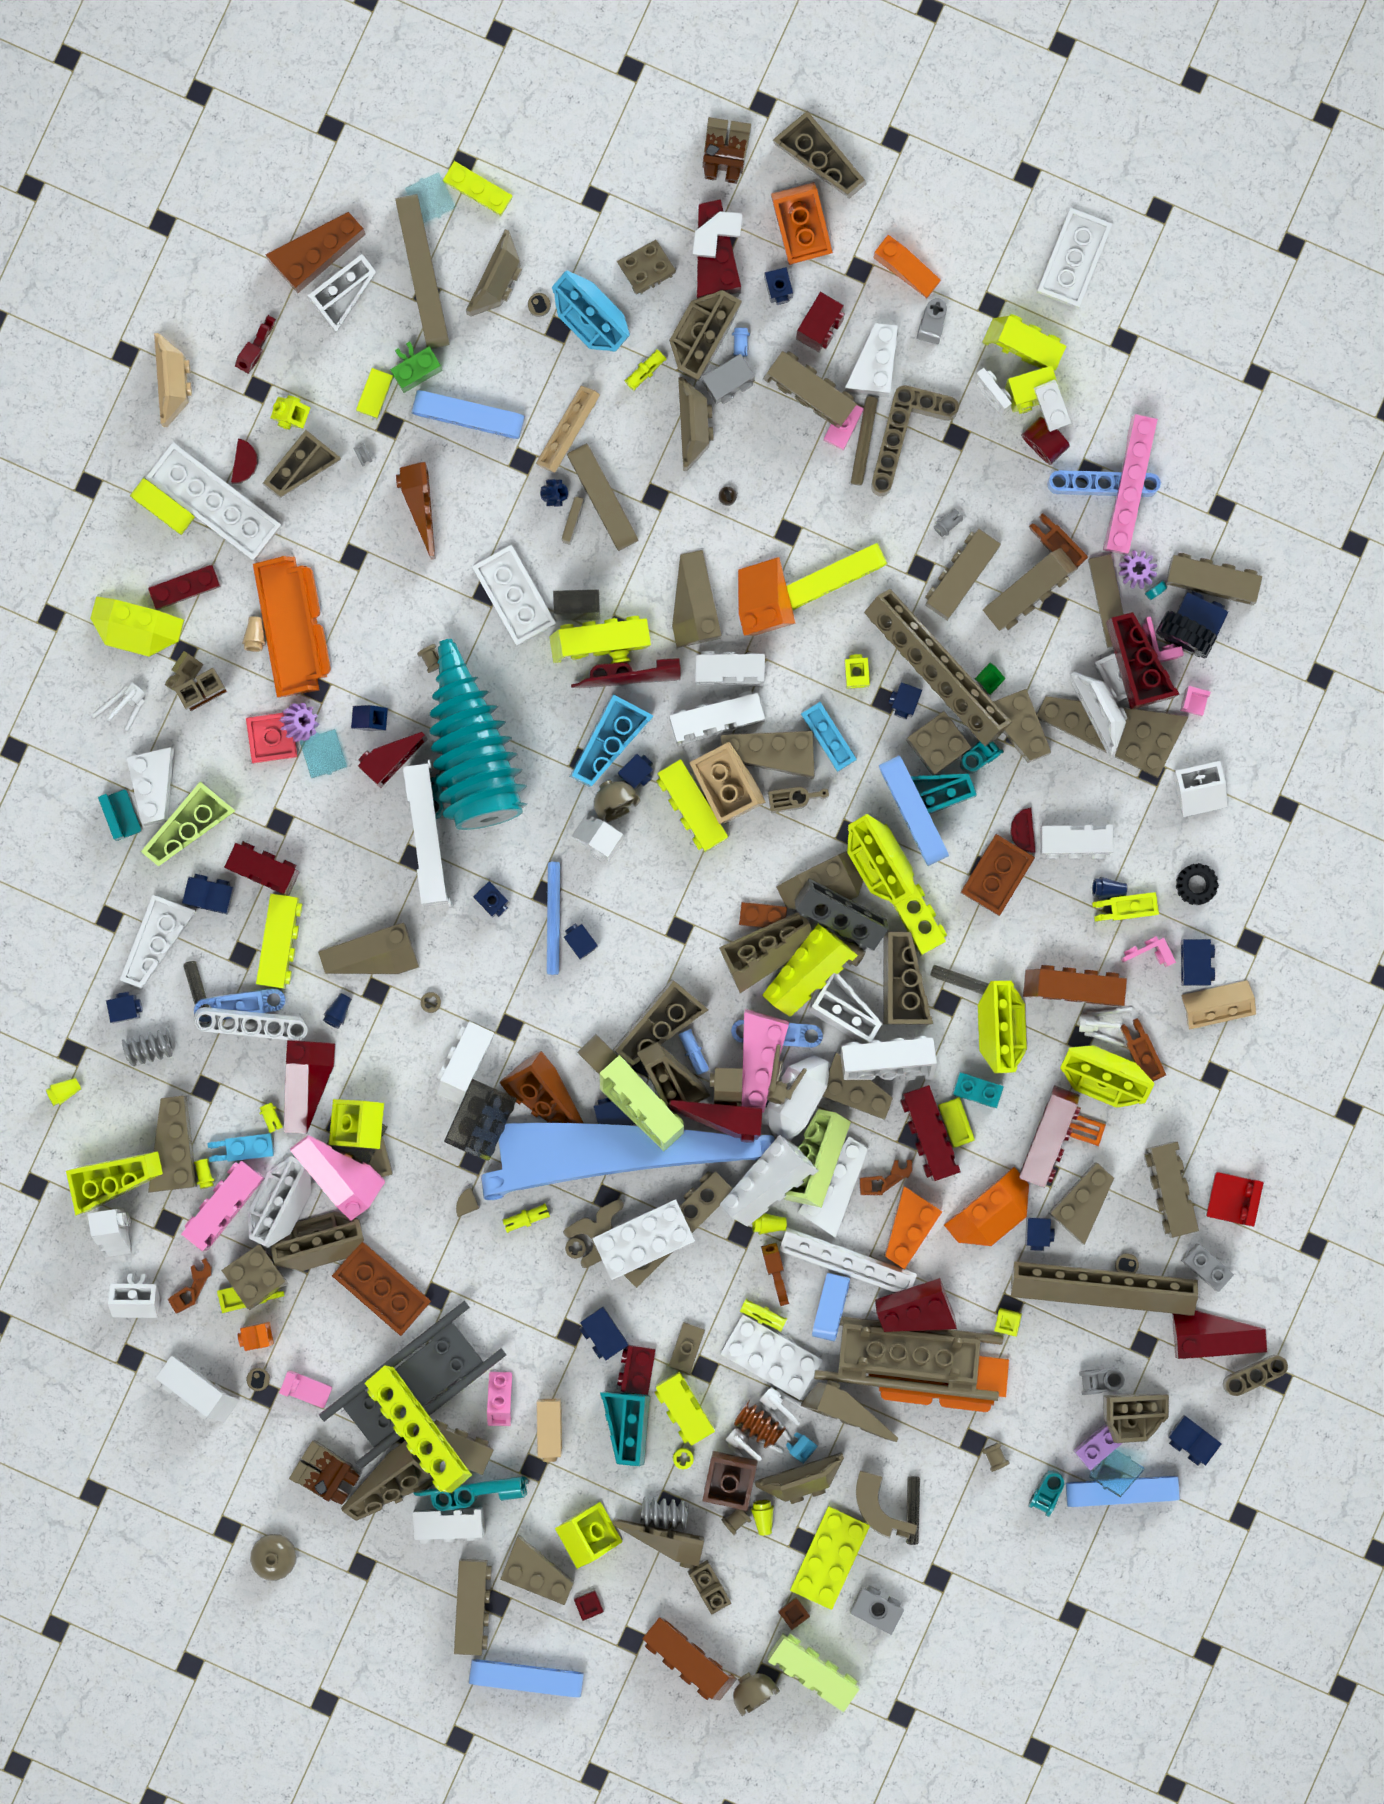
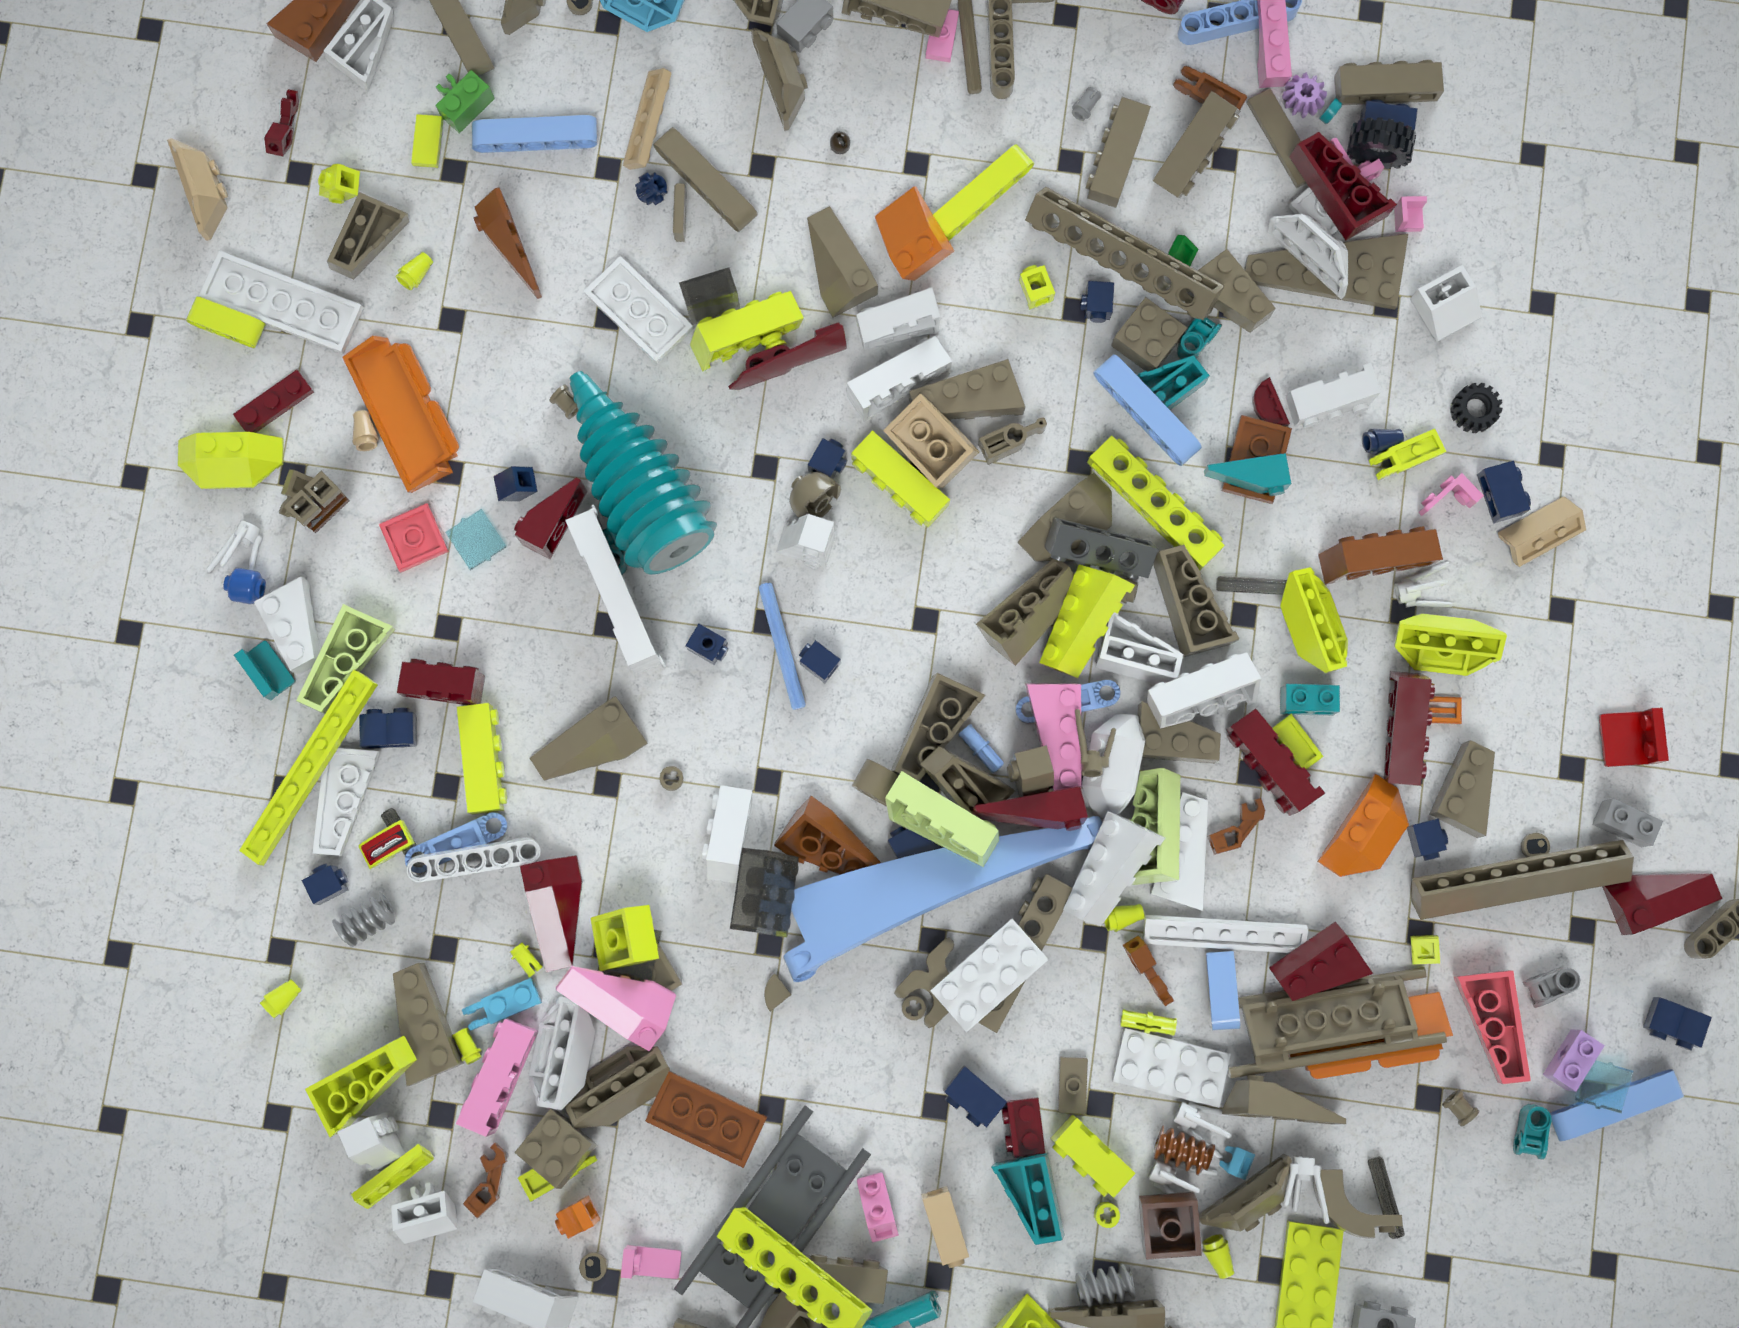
camera: 15 degrees left, 5 degrees down
(116, 1261) = (392, 1176): none -> neon yellow tile
(121, 740) = (244, 586): none -> blue head
(135, 908) = (308, 767): none -> neon yellow plate
(181, 989) = (386, 844): none -> slope
(245, 462) = (305, 252): dark red tile -> none
(295, 714) = (438, 510): lavender gear -> none
(333, 507) = (413, 272): none -> neon yellow cone
(337, 1012) = (569, 818): dark blue cone -> none
(362, 454) = (431, 207): light grey bush -> none
(525, 1218) = (847, 990): neon yellow pin -> none
(611, 735) = (789, 424): medium azure wedge -> none
(645, 370) = (713, 36): neon yellow pin -> none
(736, 1520) = (1189, 1270): dark tan bush -> none
(760, 915) = (1009, 577): dark orange plate -> none
(828, 736) = (1027, 363): medium azure plate -> none
(848, 1467) = (1303, 1169): none -> white plant
(880, 859) = (1125, 474): neon yellow wedge -> none
(910, 1227) = (1283, 874): orange wedge -> none
(992, 890) = (1258, 474): none -> teal slope
(1046, 1394) = (1497, 1020): none -> coral wedge
(1134, 1415) = (1602, 1014): dark tan wedge -> none
(1143, 1051) = (1476, 603): dark orange hinge -> none
(1172, 1189) = (1559, 746): dark tan wedge -> none

